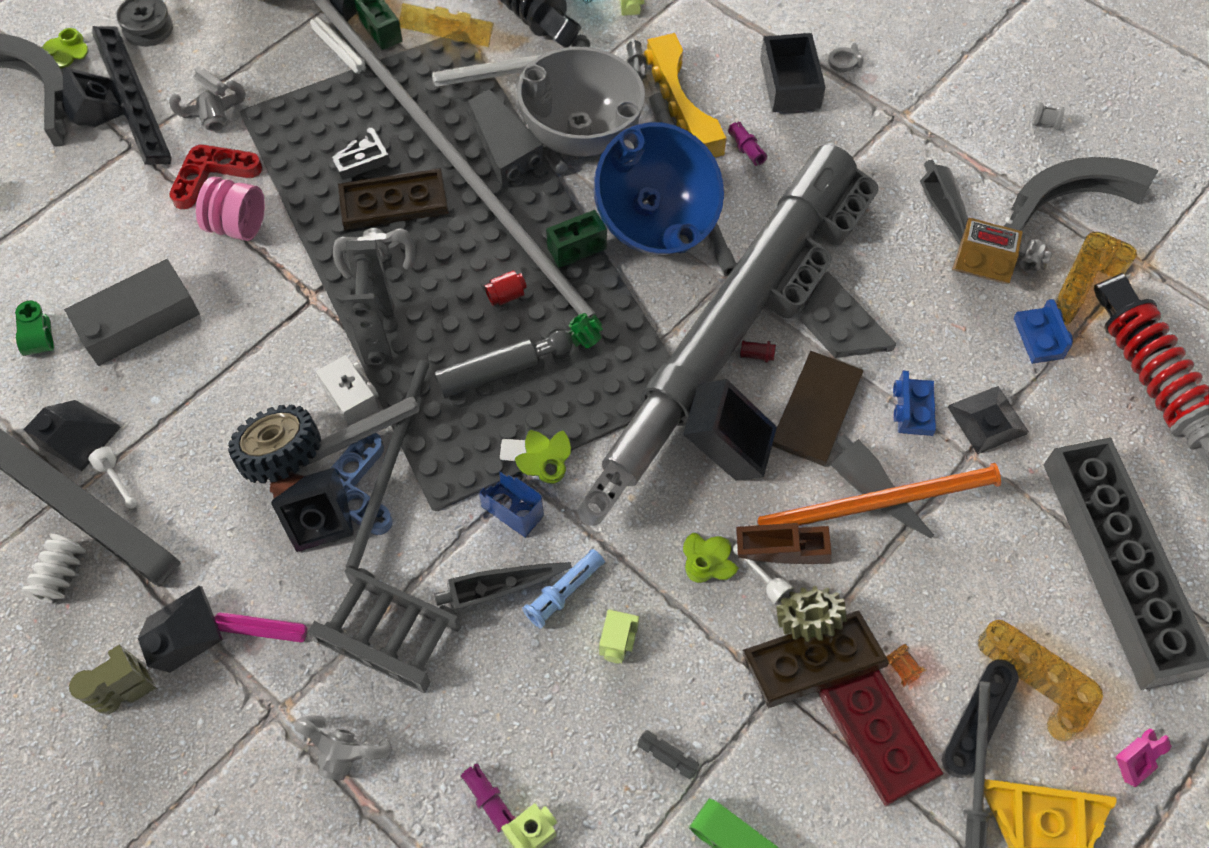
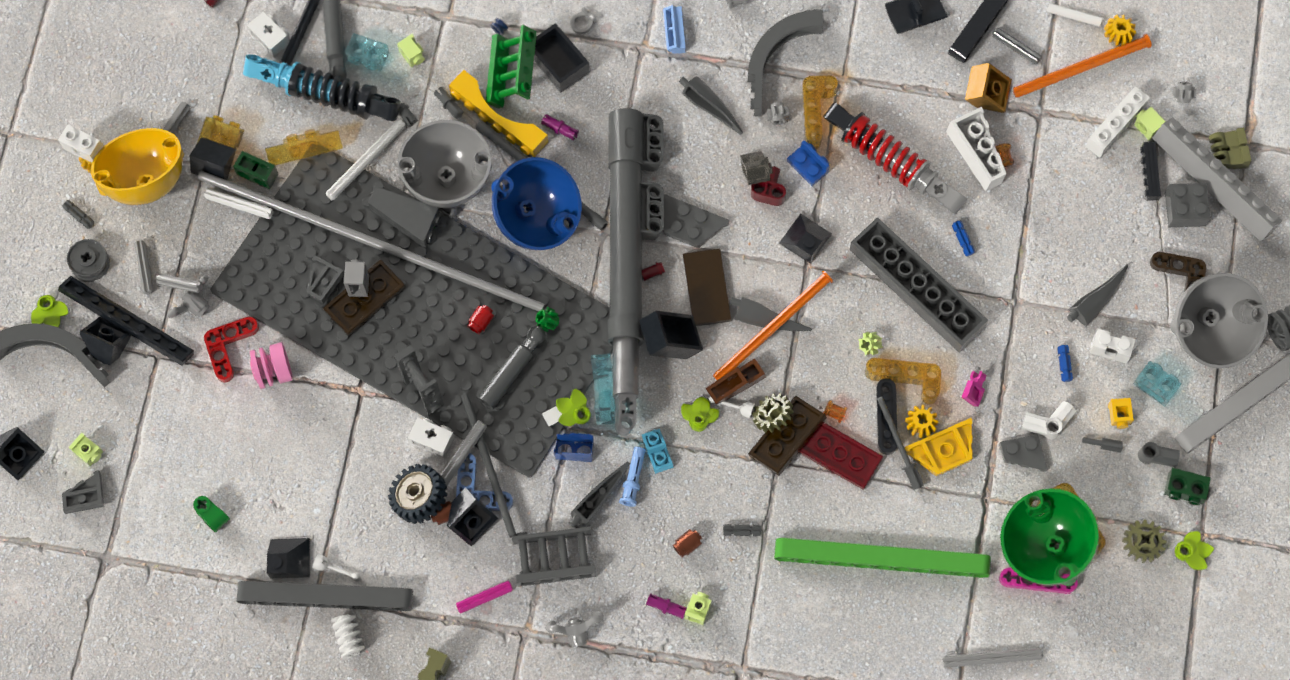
camera: 30 degrees left, 10 degrees up
(132, 312) = (262, 466): dark grey brick -> none
(179, 632) = (444, 623): black slope -> none
(193, 56) = (143, 265): none -> light grey axle
(384, 242) = (383, 339): light grey piece -> none
(391, 163) = (356, 278): none -> light grey brick
(576, 238) = (503, 262): dark green brick -> none
(577, 724) = (687, 543): none -> copper brick
(588, 467) = (603, 387): none -> clear light blue arch
(617, 635) = (679, 486): yellowish green brick -> none
(619, 573) = (657, 451): none -> medium azure slope
(730, 53) = (499, 62): none -> green fence
(745, 18) = (499, 26): none -> dark blue bush
(915, 405) = (761, 254): blue bracket -> none
(951, 112) = (674, 29): none -> light blue piece
(966, 334) = (769, 188): none -> dark red beam
(969, 297) = (756, 167): none -> clear smoke brick
(988, 251) = (750, 127): pearl gold slope -> none
(1010, 600) = (870, 343): none -> yellowish green gear
(1034, 770) = (918, 414): none -> yellow gear

